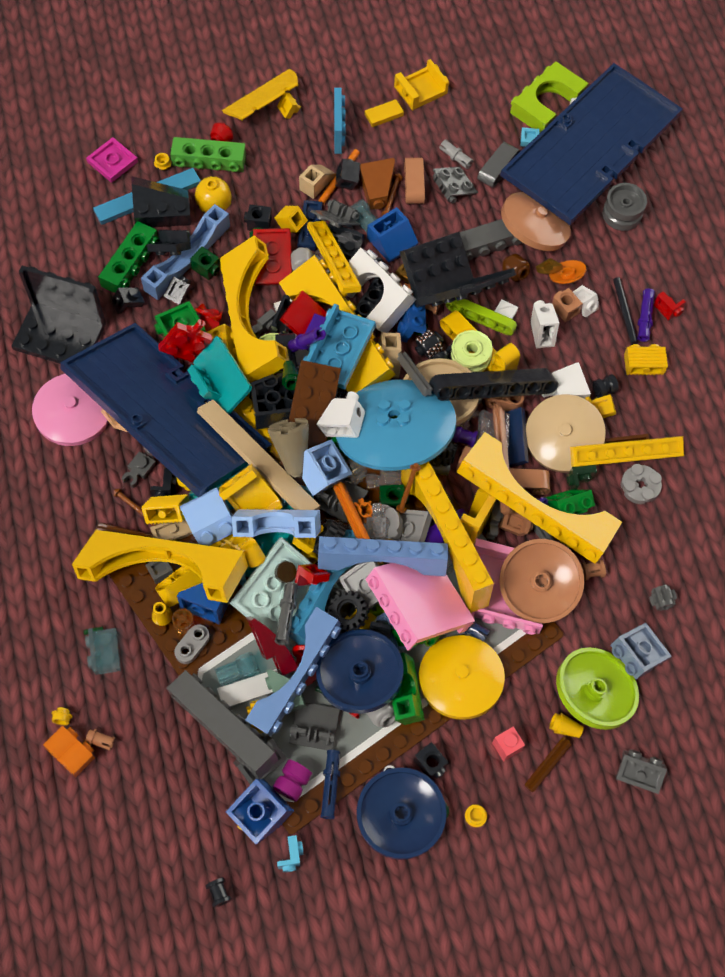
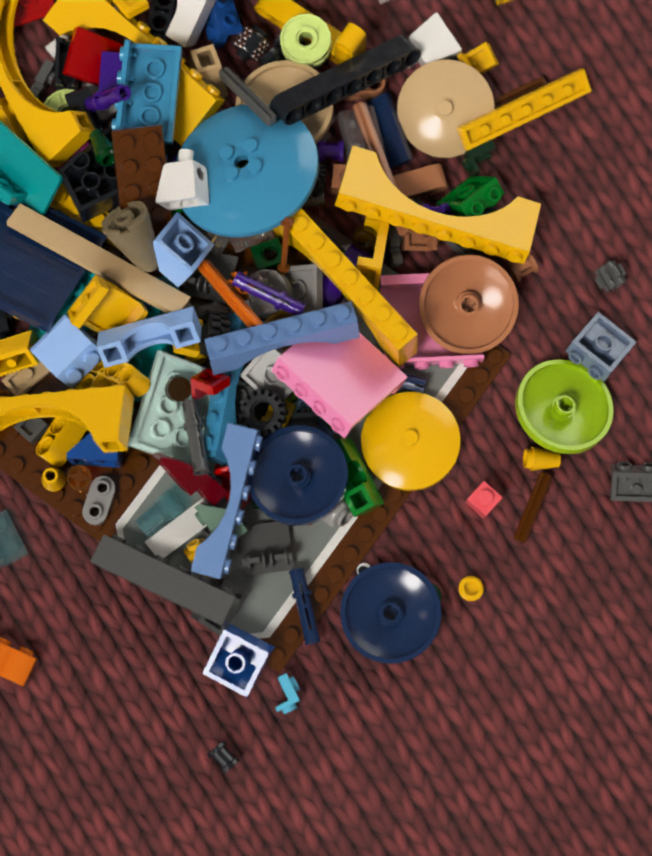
camera: 15 degrees left, 15 degrees up
(99, 739) = (36, 638): nougat pin -> none
(291, 782) = (262, 616): magenta wheel -> none
(390, 528) = (242, 280): none -> dark purple pin
(427, 752) = (403, 535): black brick -> none
(472, 505) = (364, 237): none -> dark brown tile
(605, 386) = (477, 30): black wheel -> none
(648, 476) = (560, 153): light grey plate -> none

